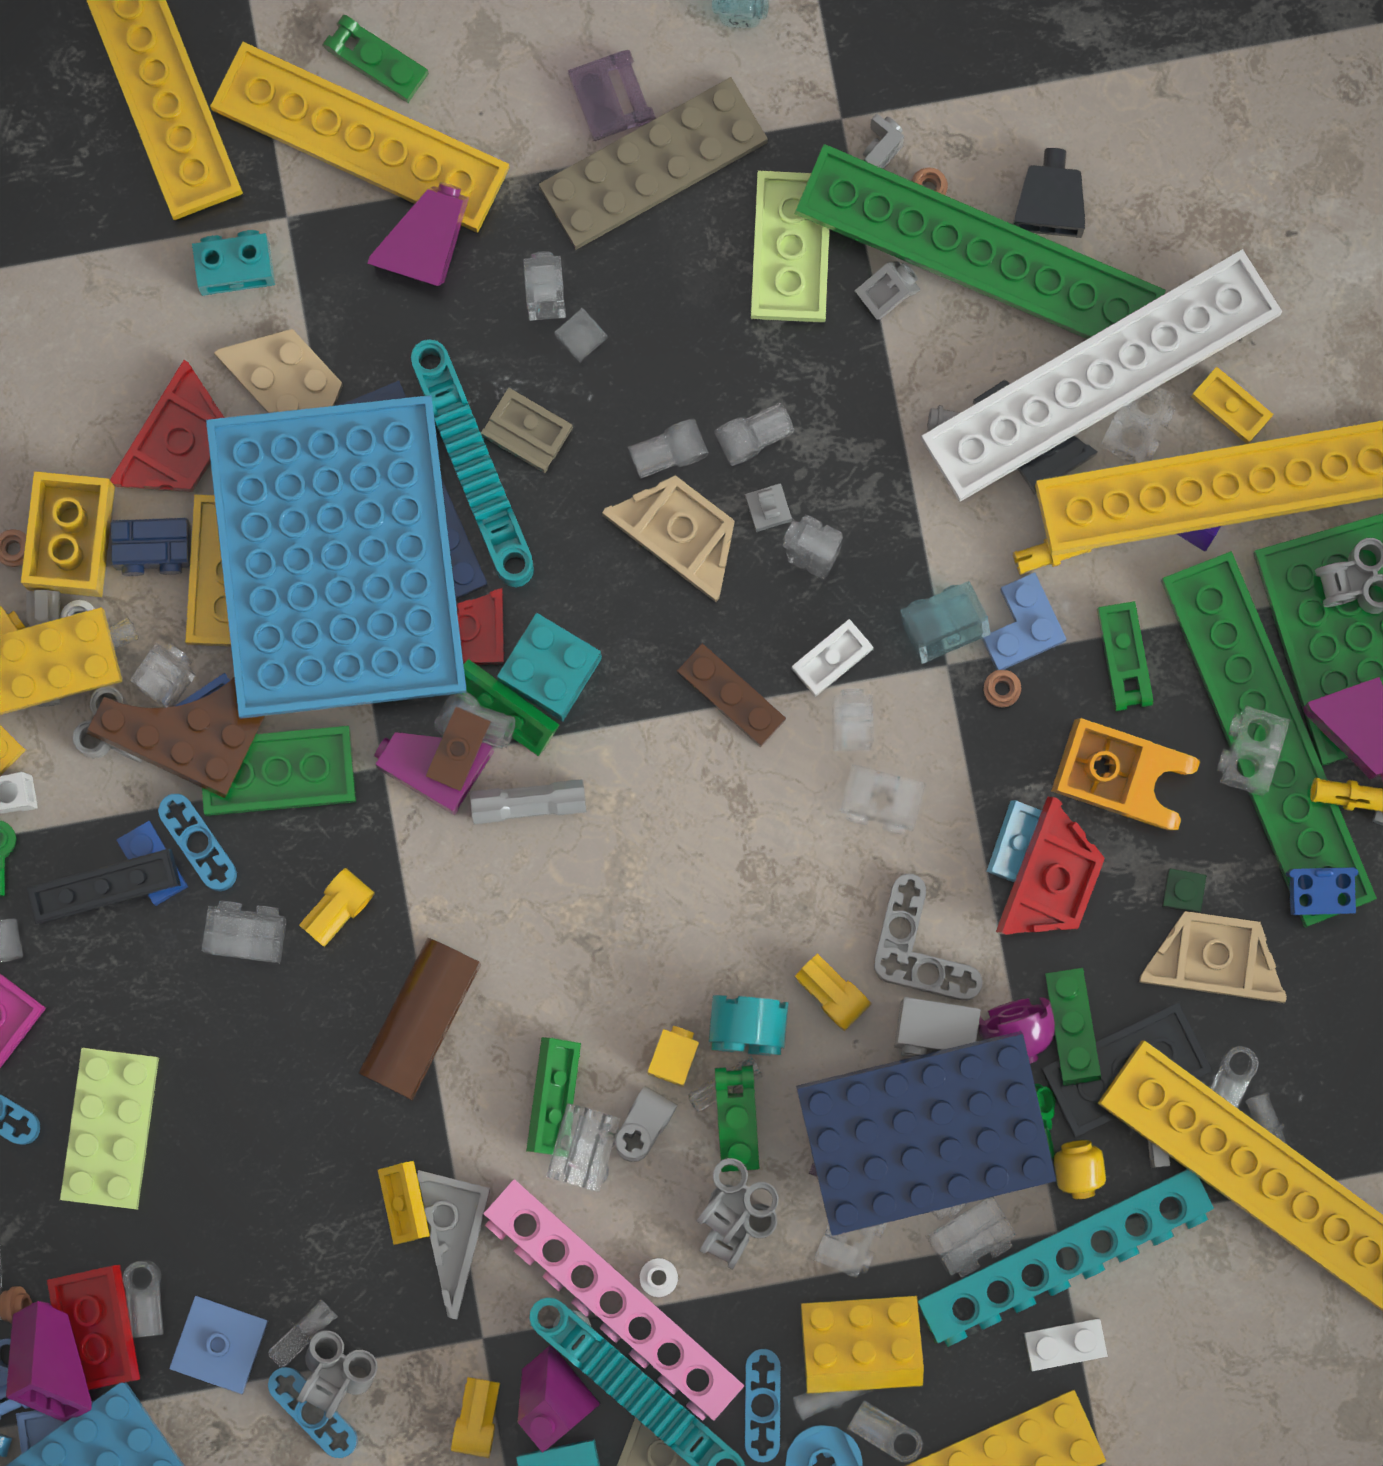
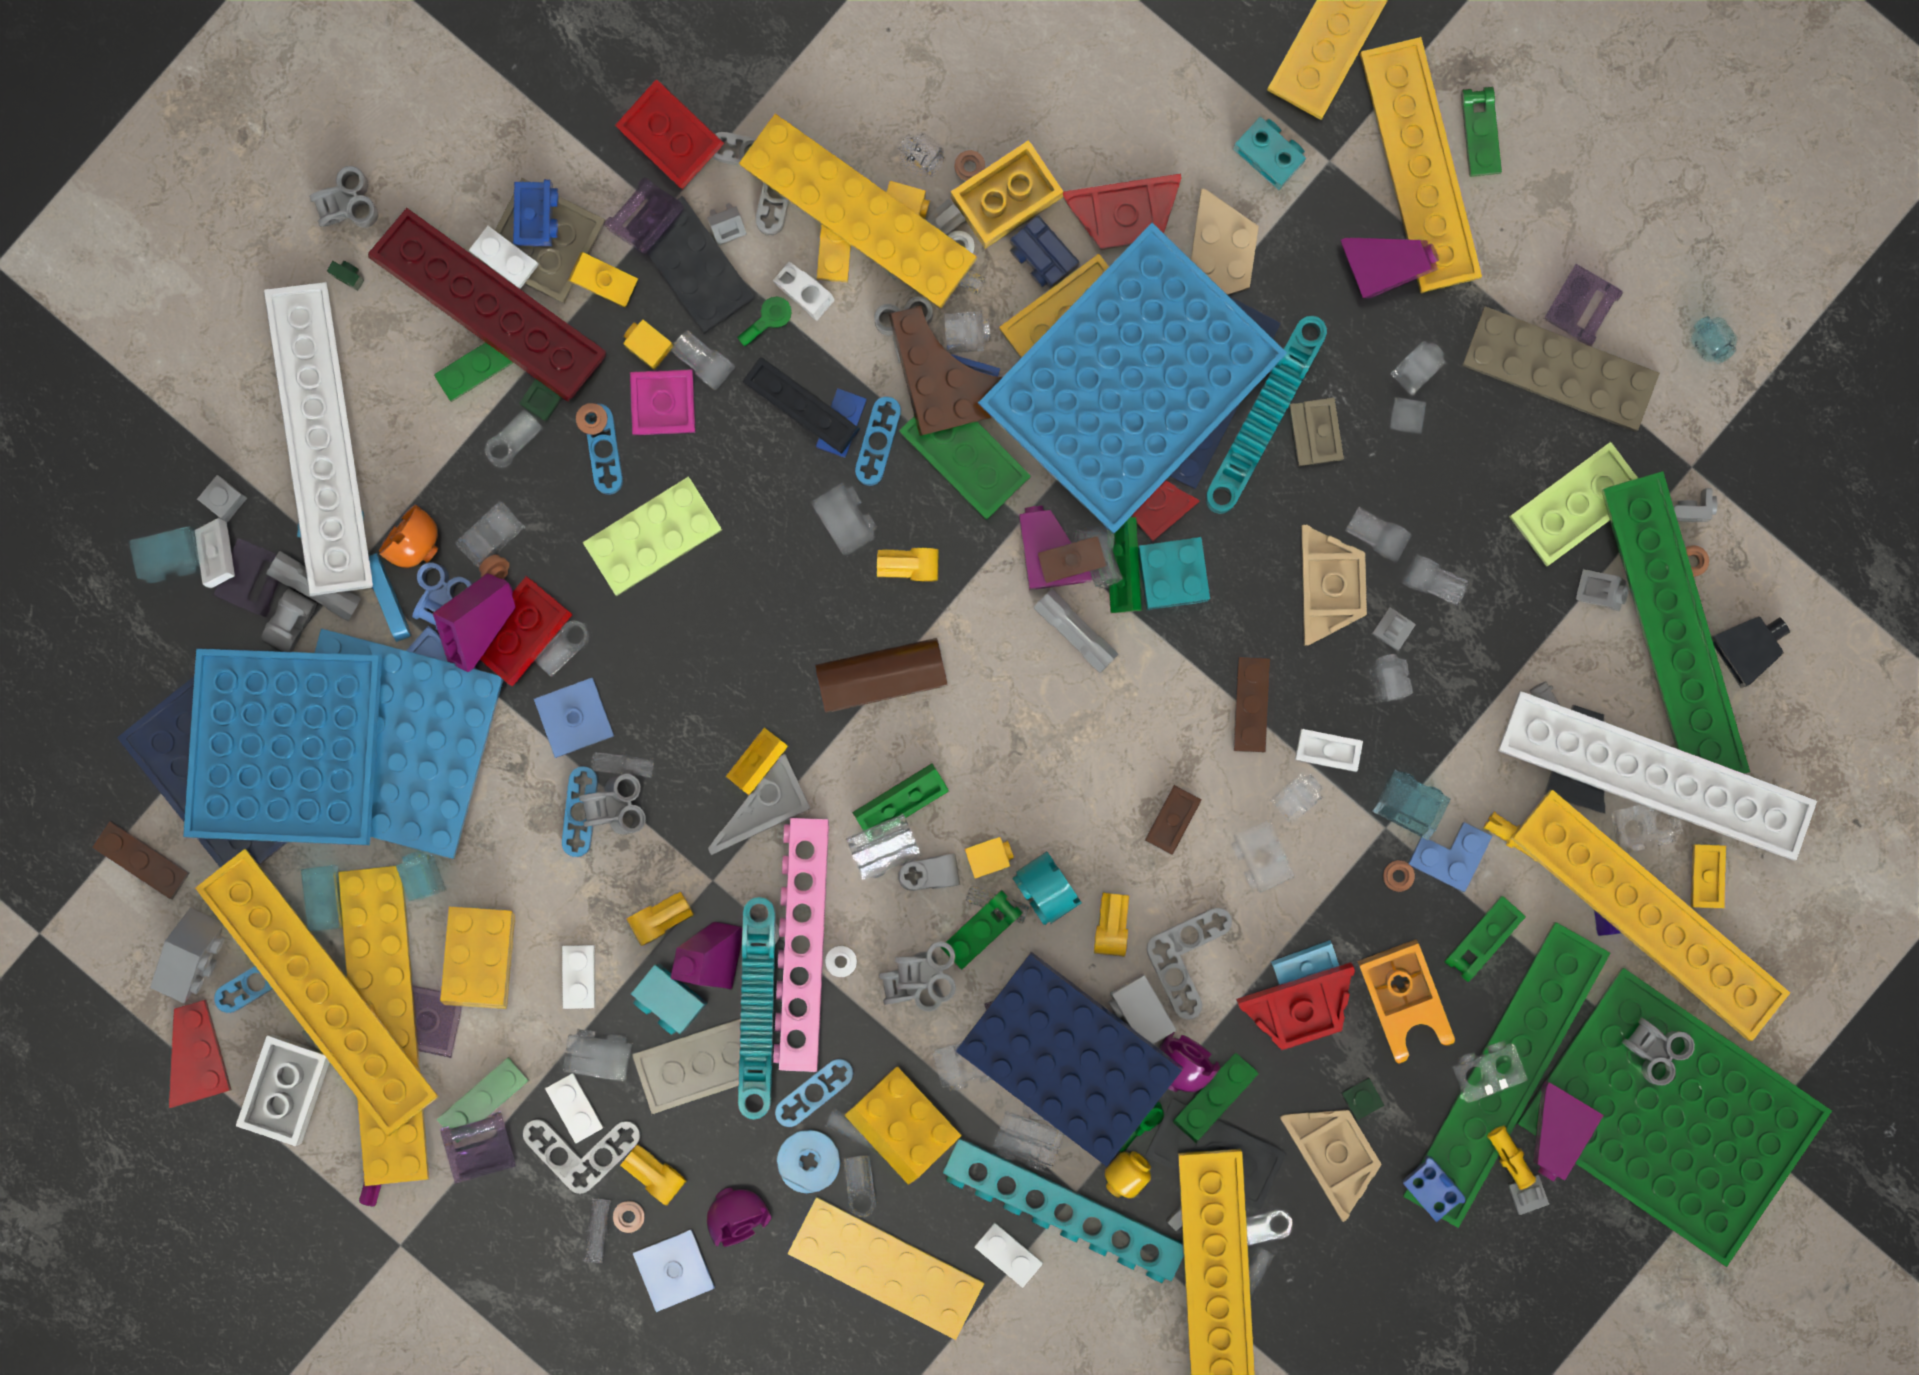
camera: 50 degrees right, 5 degrees up
(779, 855) = (1173, 819): none -> reddish brown plate

